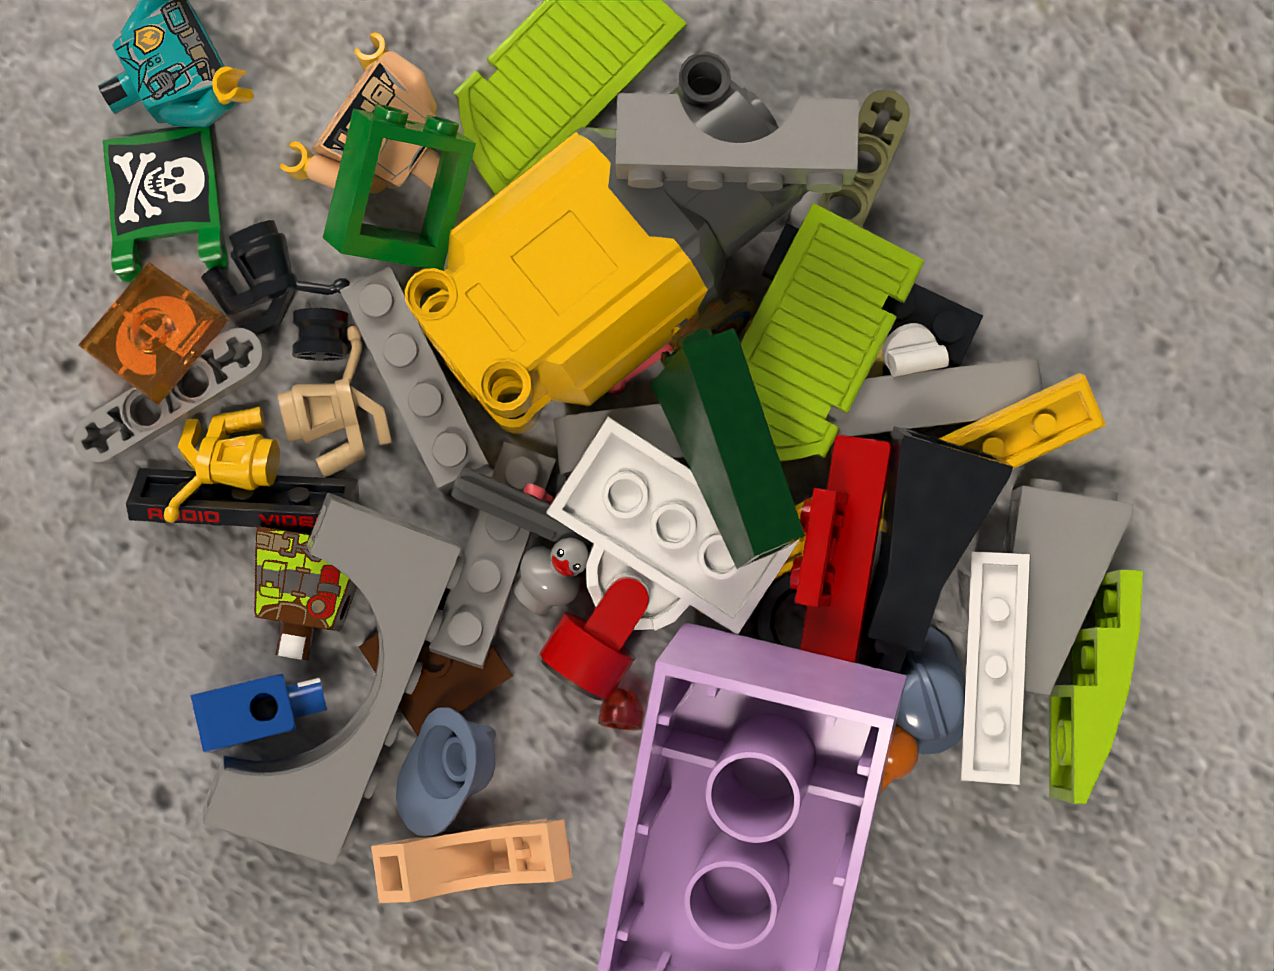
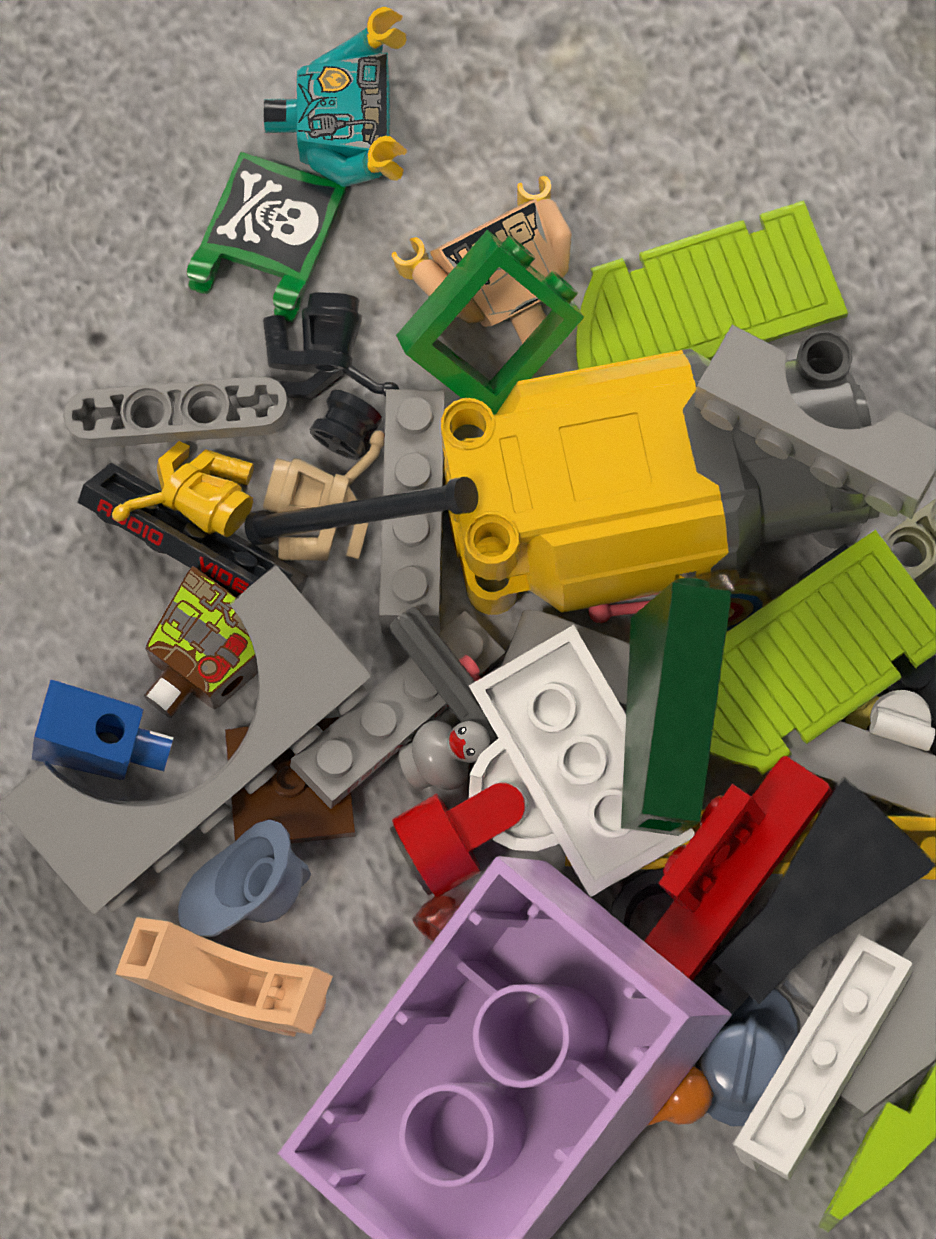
camera: 30 degrees right, 10 degrees down
(153, 333) = (192, 345): clear orange tile -> none
(457, 364) = (458, 496): none -> black bar

